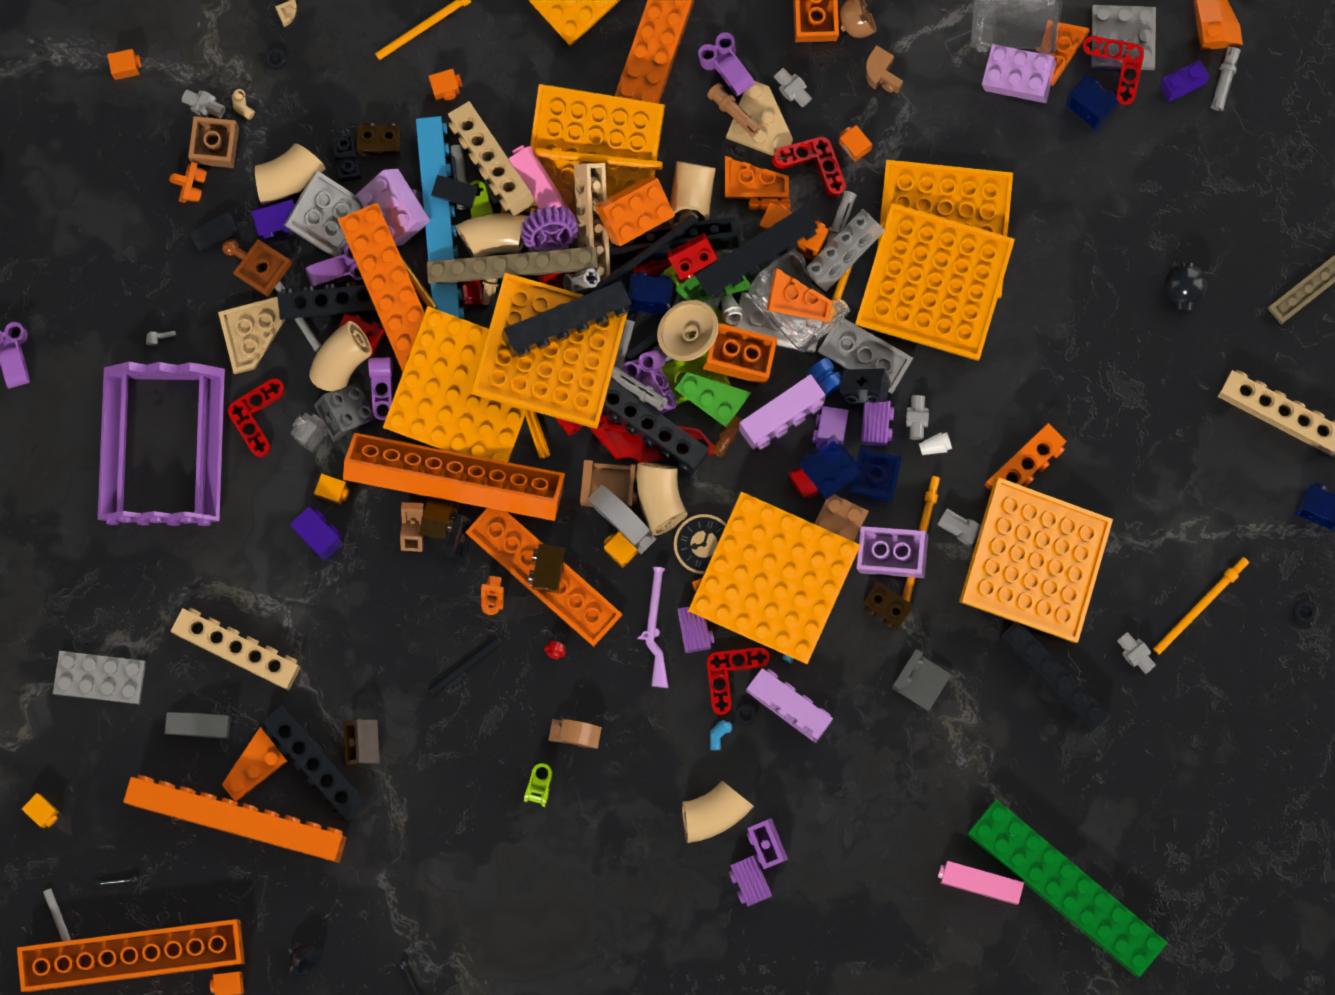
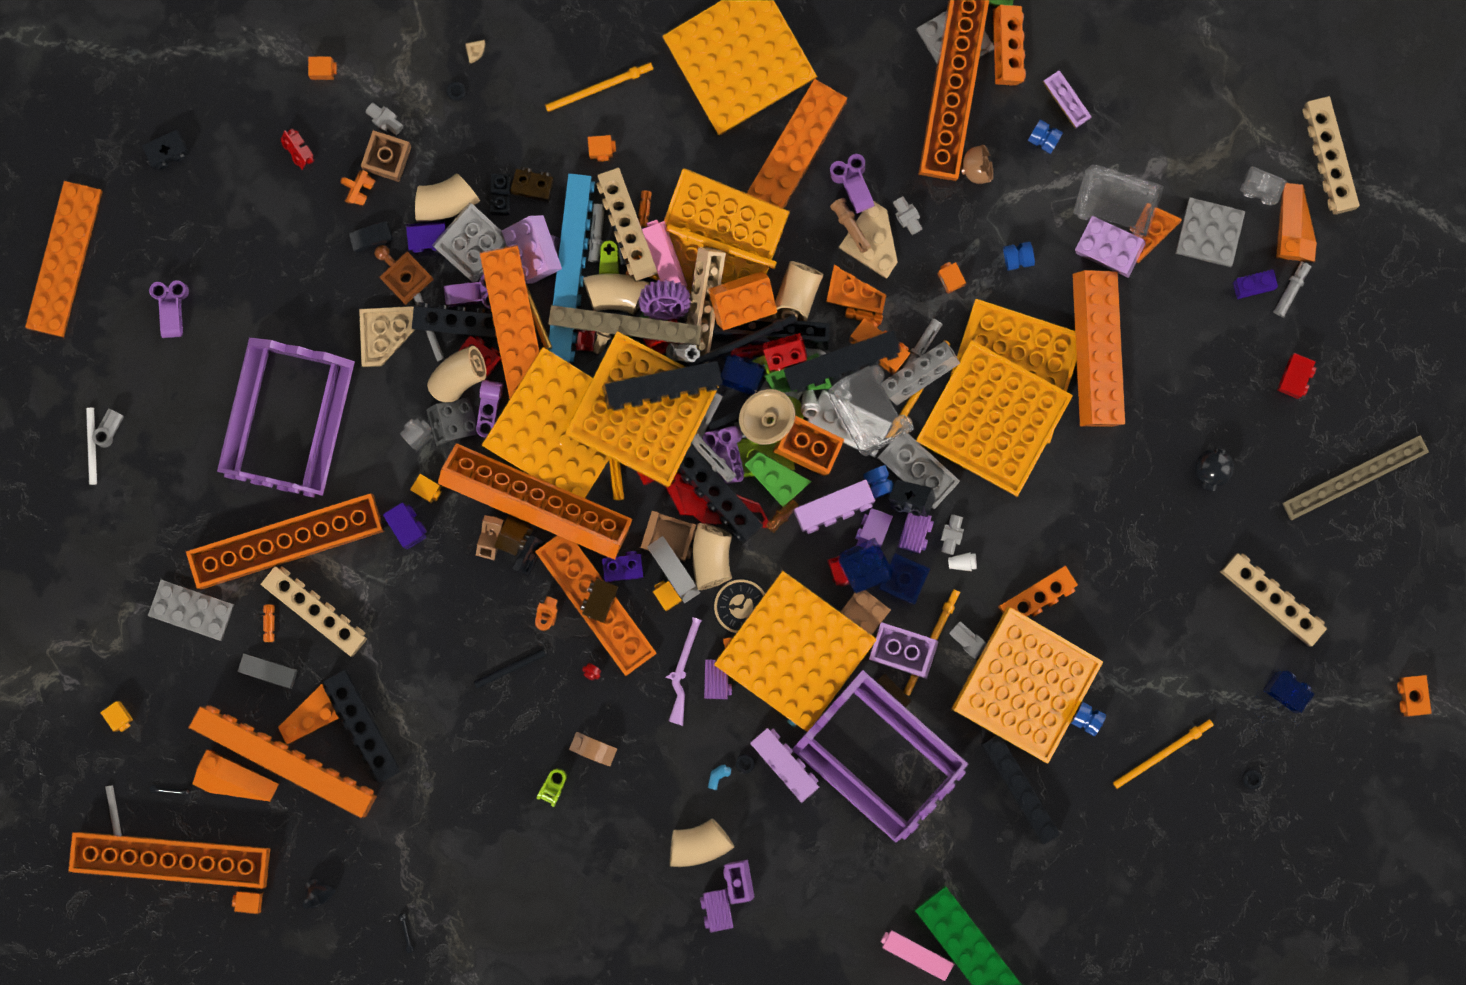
camera: 10 degrees right, 5 degrees up
(108, 148) = (291, 141): none -> red hinge
(152, 337) = (297, 319): light grey hand -> none
(175, 852) = (226, 777): none -> orange wedge
(188, 579) = (285, 541): none -> orange brick
(188, 673) = (268, 623): none -> orange axle
(239, 104) = (416, 126): tan arm -> none
(249, 410) = (368, 402): red beam -> none
(361, 742) = (406, 717): dark brown brick -> none
(454, 191) = (589, 247): black tile -> none
(506, 137) = (644, 208): none -> orange axle
(566, 528) = (623, 567): none -> dark purple brick
(722, 672) = (732, 722): red beam -> none
(796, 299) = (868, 409): orange wing -> none
(813, 154) = (912, 279): red beam -> none
(877, 71) = (985, 217): medium nougat brick -> none
(917, 632) = (855, 789): none -> medium lavender door
(920, 105) = (1018, 256): none -> blue wheel
(921, 680) = (904, 767): dark grey bracket -> none
(1031, 184) = (1098, 348): none -> orange brick
(1092, 102) = (1169, 286): clear blue brick -> none
(1111, 584) = (1088, 719): none -> blue wheel
(1127, 63) = (1208, 256): red beam -> none
(1136, 652) = (1097, 783): light grey axle -> none
(1251, 168) = (1296, 376): none -> red brick

